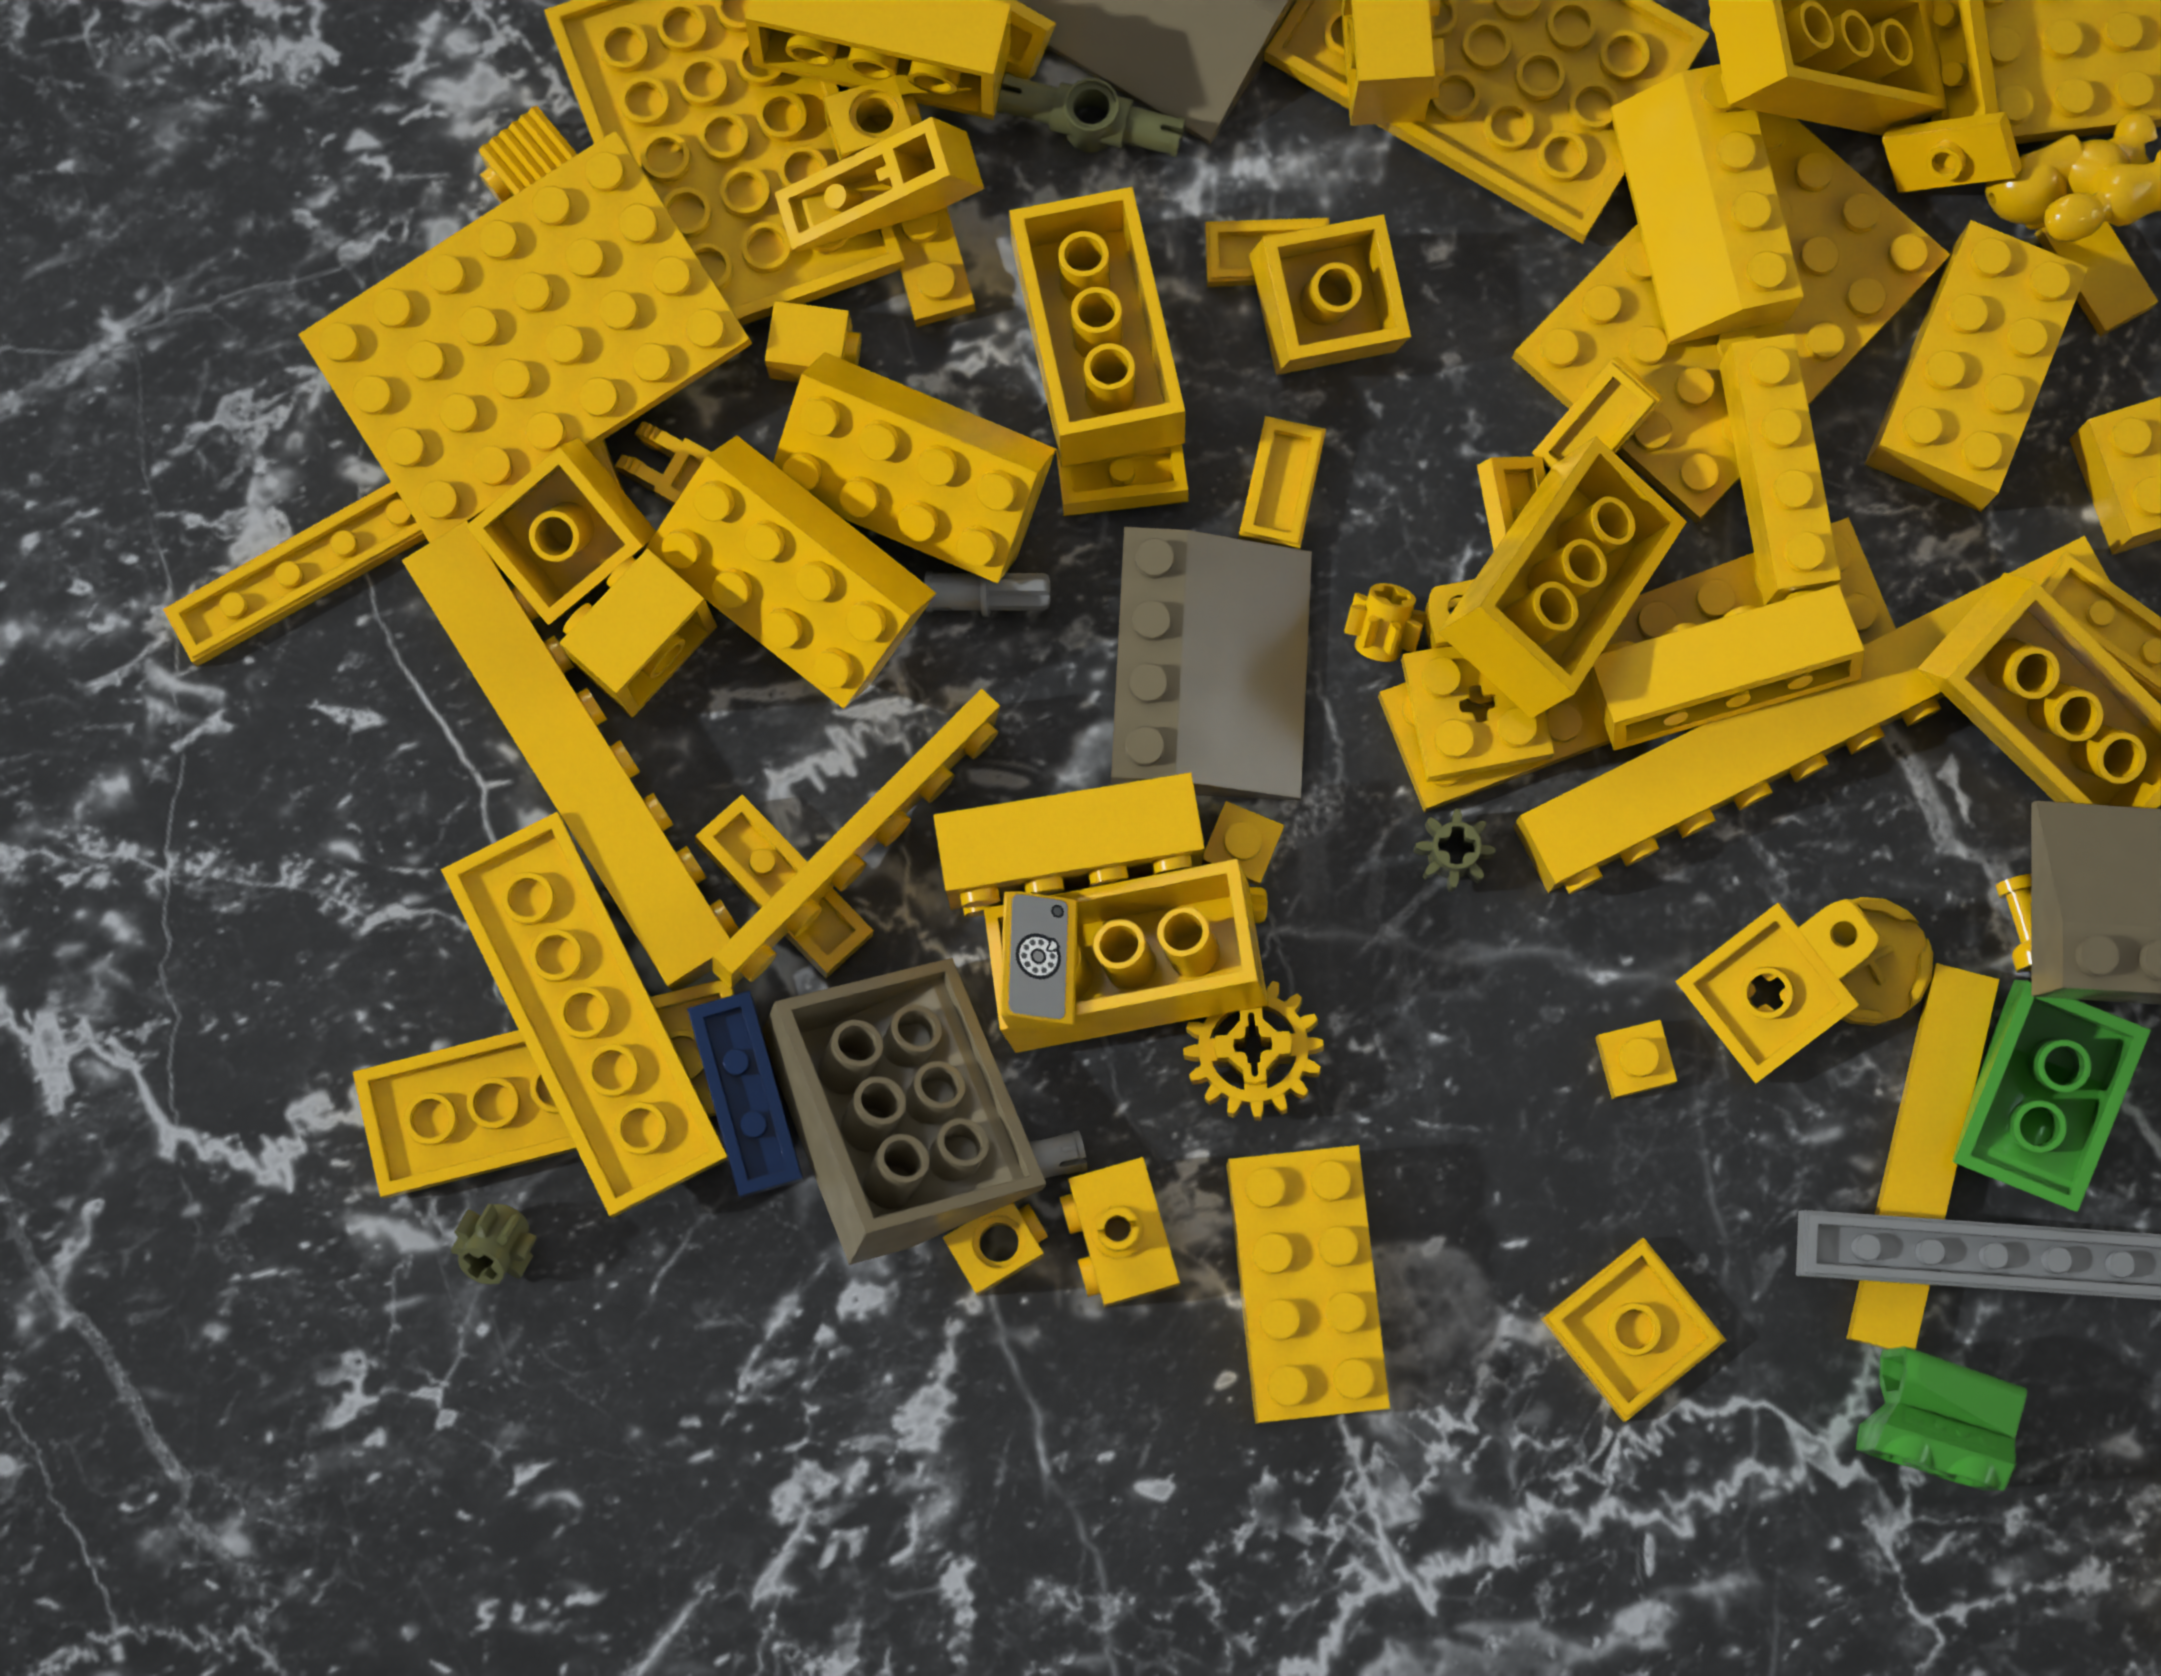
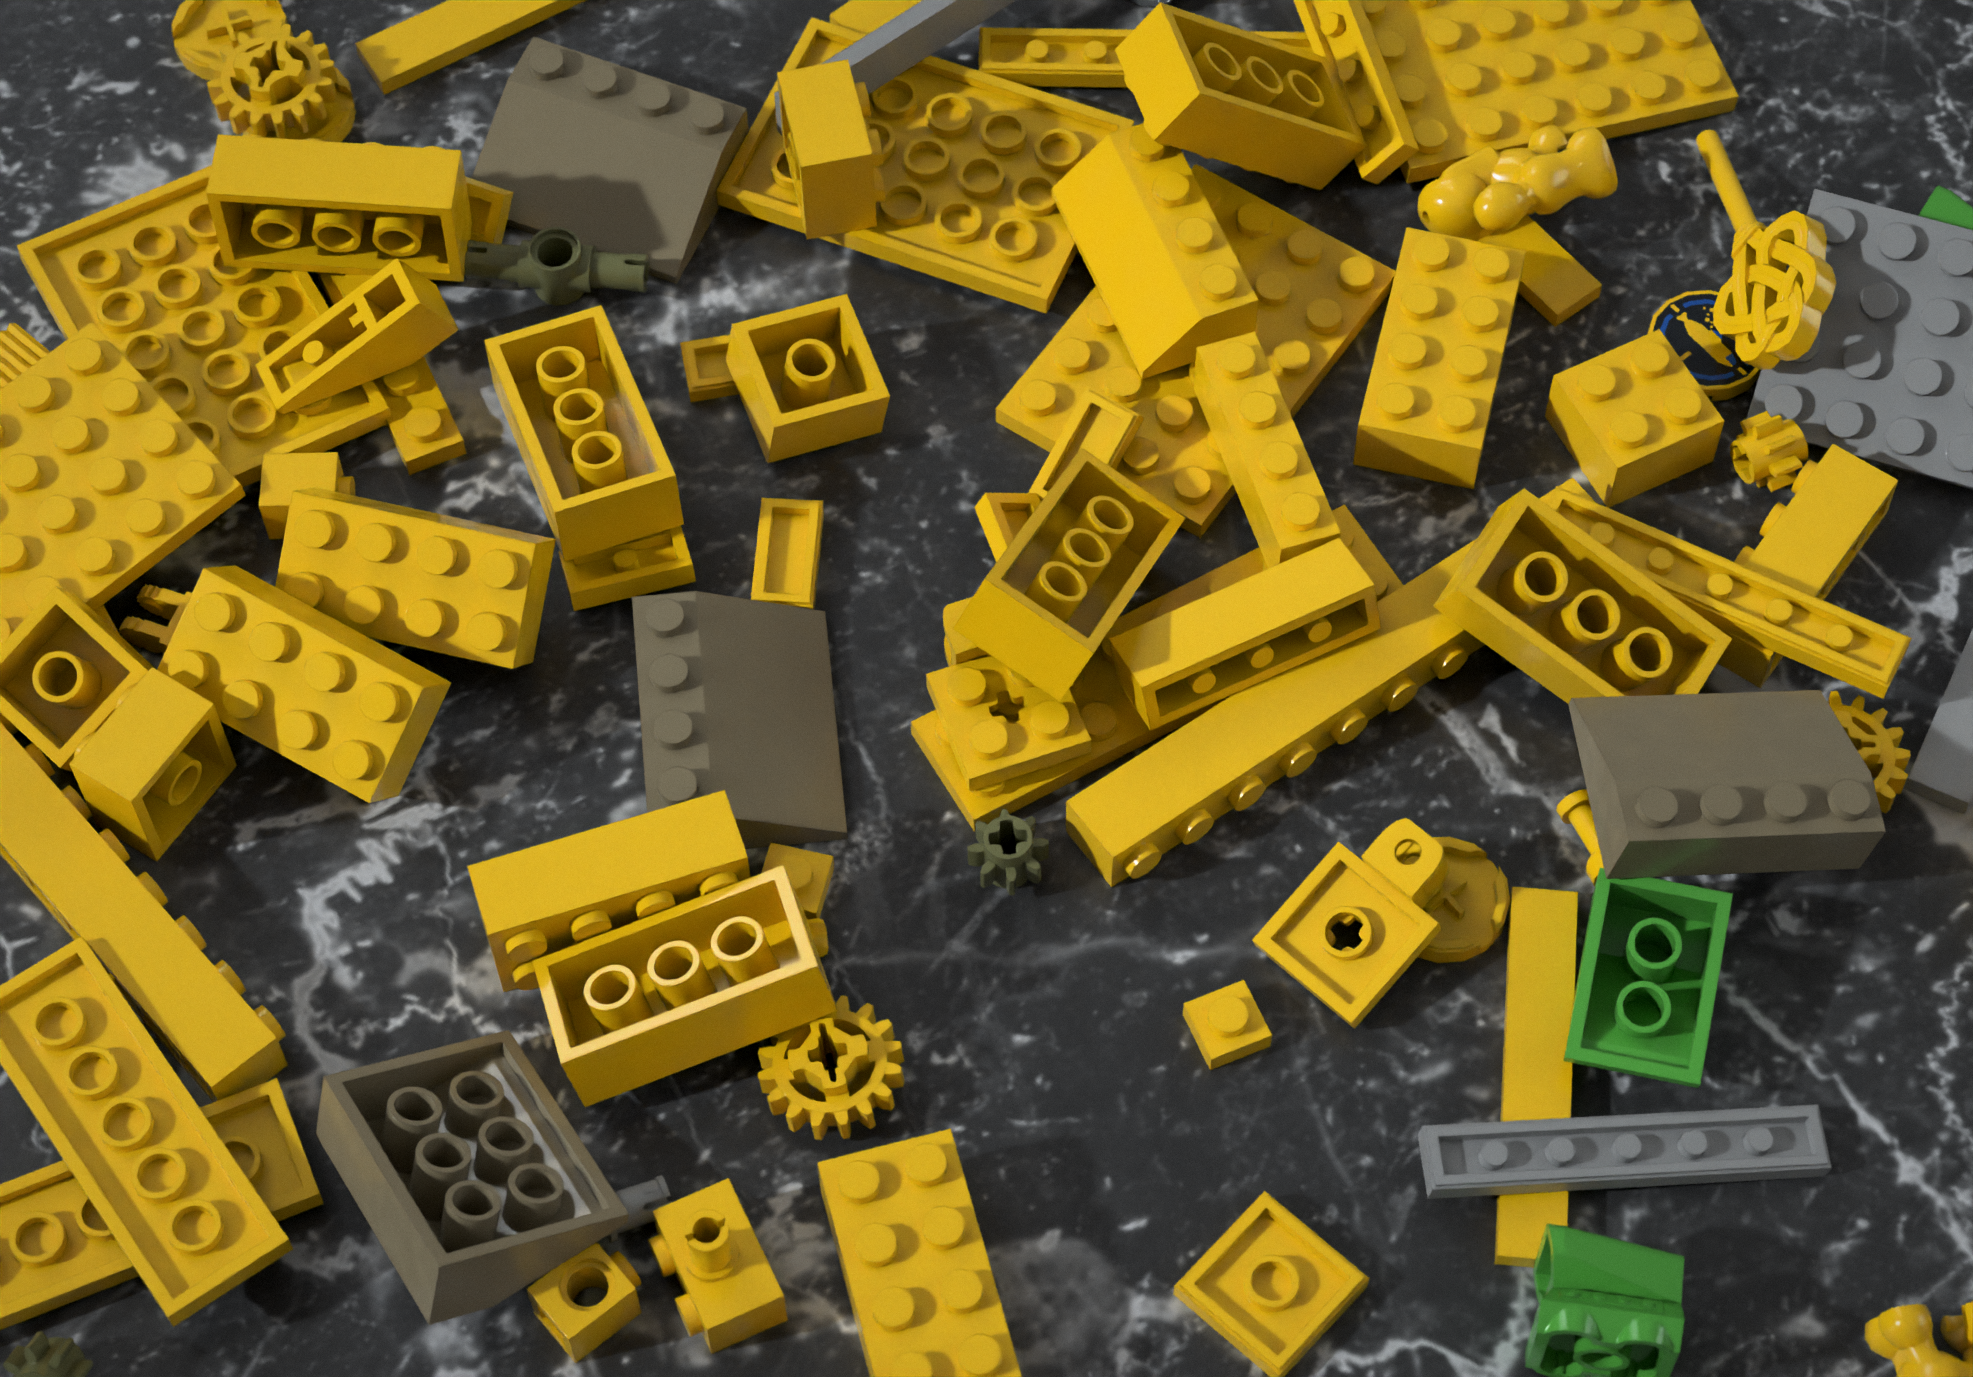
camera: 10 degrees left, 20 degrees down
(745, 1094) = (303, 1180): dark blue plate -> none
(762, 863) = (326, 986): yellow plate -> none
(840, 859) = (383, 933): yellow plate -> none
(850, 107) = (328, 276): yellow brick -> none
(976, 593) = (505, 688): light grey axle -> none
(1038, 961) = (591, 988): slope -> none
(1385, 622) = (905, 655): yellow gear -> none
(1952, 152) = (1378, 179): yellow plate -> none

